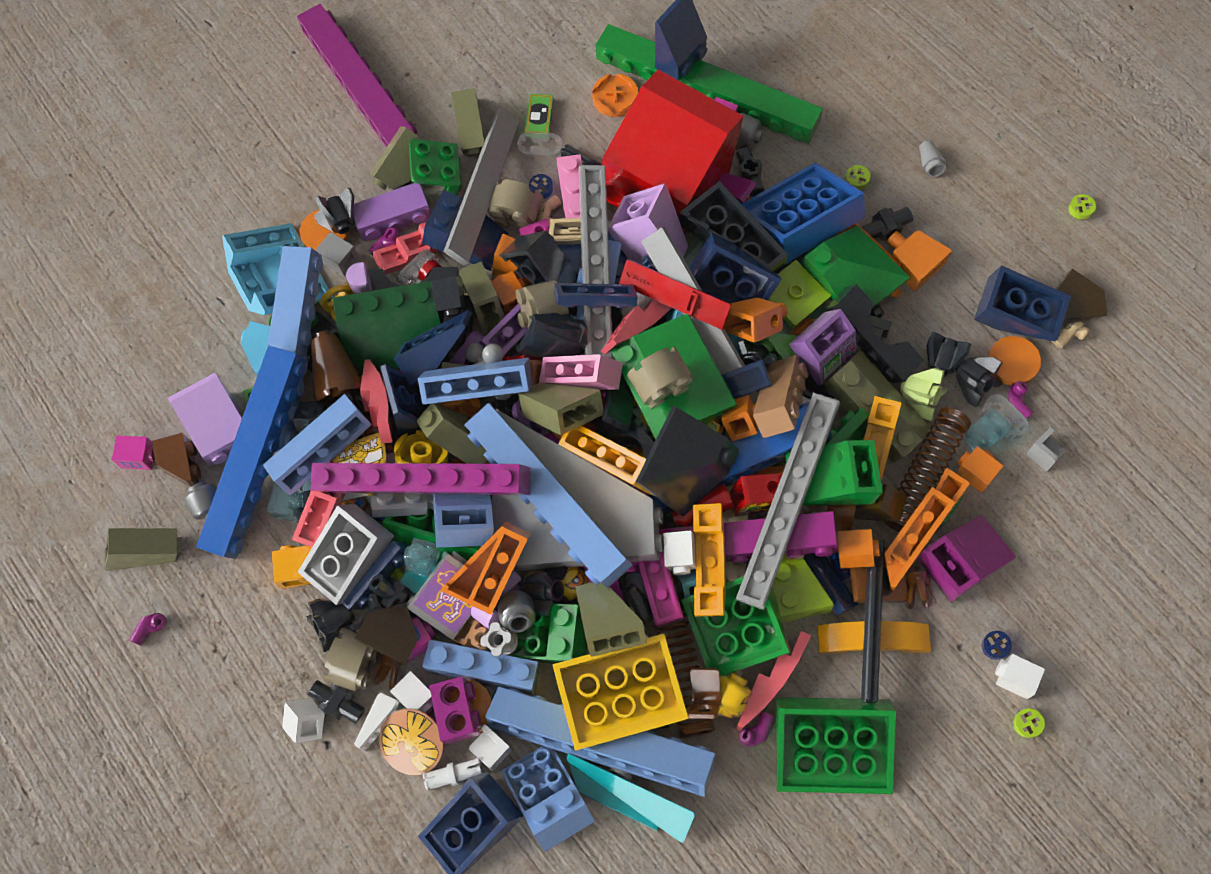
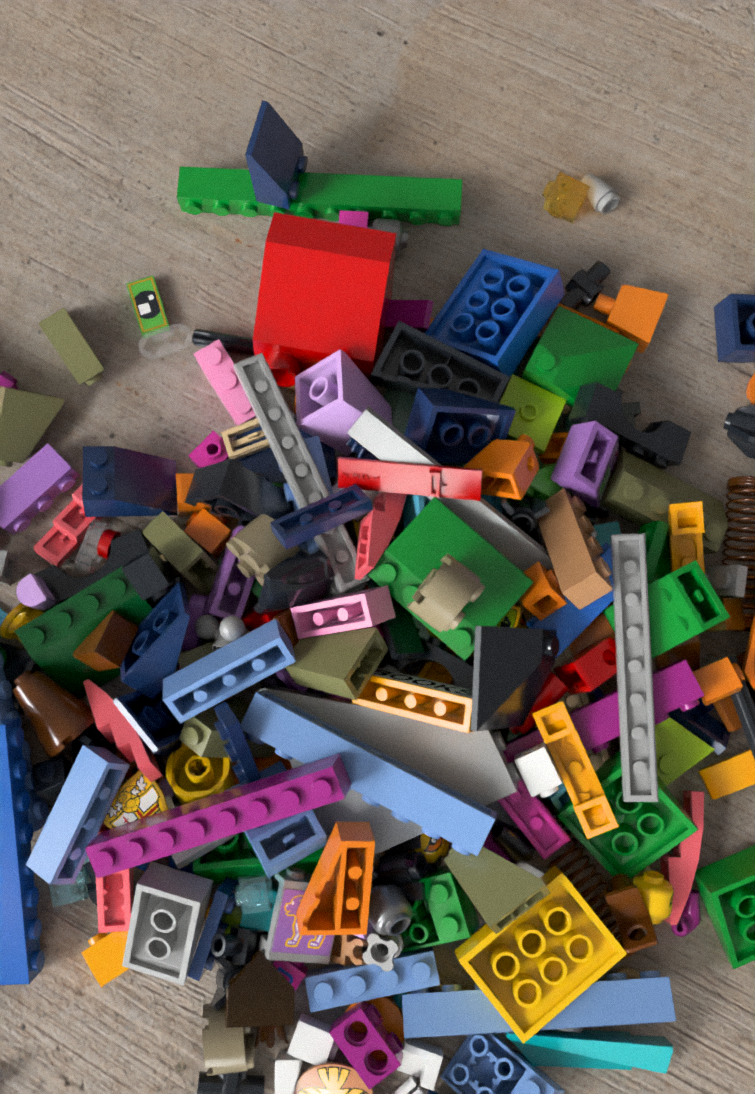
camera: 25 degrees left, 10 degrees up
(328, 620) = (183, 1002): black brick -> none
(385, 240) = (41, 525): magenta arm -> none
(395, 334) = (107, 643): none -> reddish brown slope
(435, 164) = (58, 416): green bracket -> none
(456, 439) = (237, 746): none -> dark blue plate
(481, 187) = (124, 424): light grey tile -> none
(514, 204) = (170, 427): dark tan brick -> none
(542, 184) = (187, 390): clear blue tile -> none
(547, 207) = (205, 416): tan arm -> none
(614, 94) = (222, 248): orange tile -> none
(747, 379) = (529, 544): dark blue tile -> none
(750, 169) = (404, 275): black axle -> none
(858, 176) = (529, 245): lime tile -> none
(901, 478) = (727, 580): none -> light grey plate
(902, 152) = (564, 197): none -> clear yellow brick
(922, 391) = (703, 466): yellowish green brick -> none
(946, 352) = (708, 415): black brick -> none

